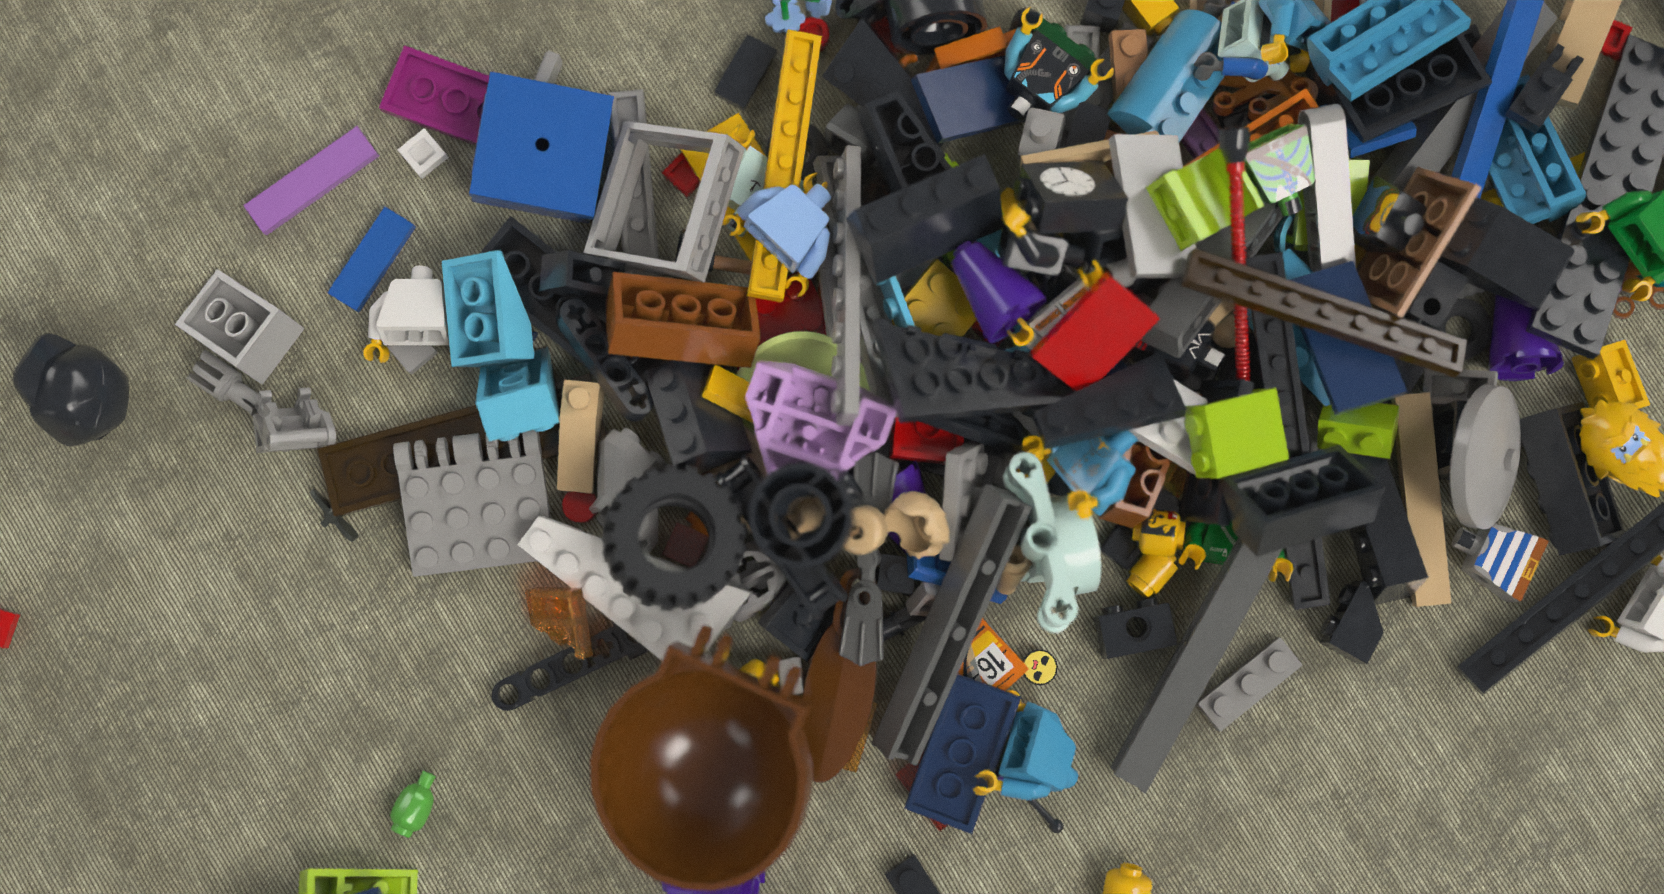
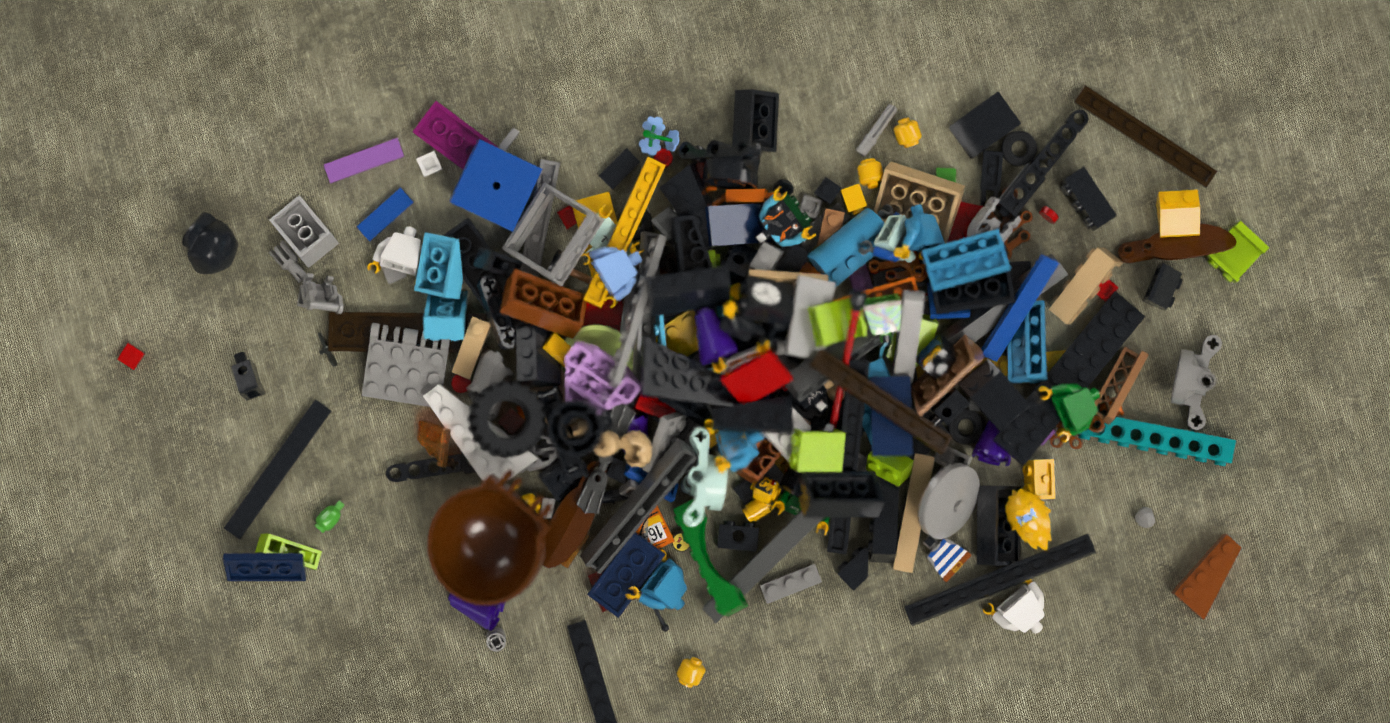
camera: 20 degrees right, 5 degrees up
(203, 604) = (248, 384): none -> black torso
(301, 749) = (277, 469): none -> black tile
(1001, 154) = (739, 262): none -> black brick
(1014, 571) = (680, 487): tan cone -> none
(1155, 737) = (727, 596): none -> green arch
(1542, 91) = (1045, 313): black hinge -> none

